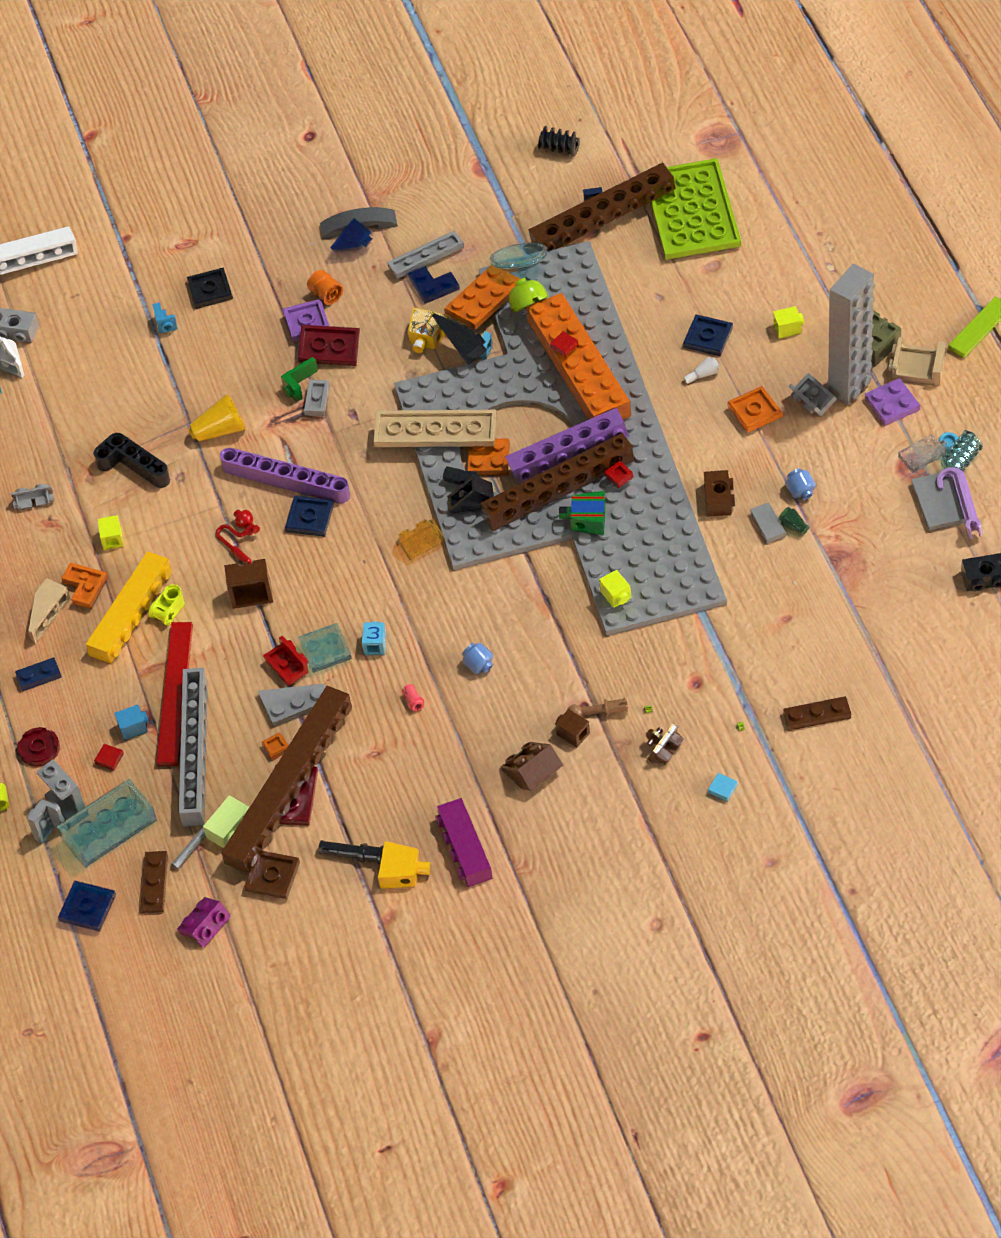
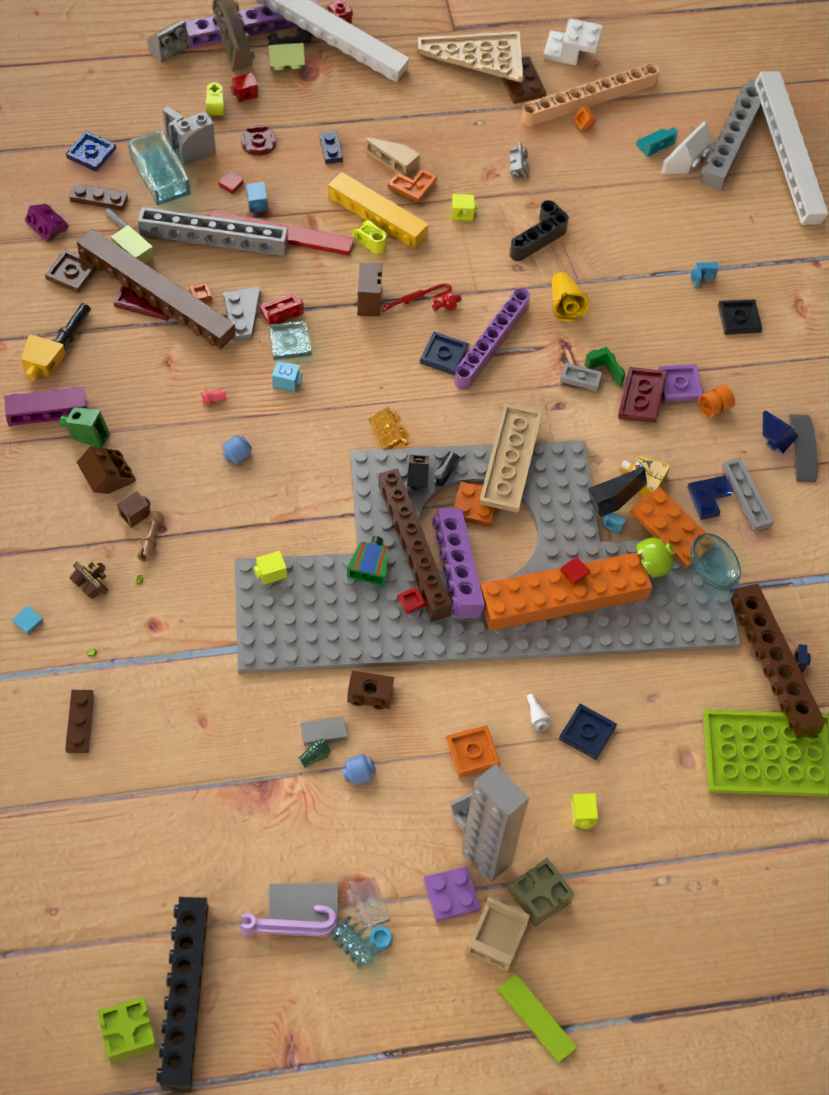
camera: 90 degrees right, 5 degrees up
(484, 793) = (86, 426): none -> green torso

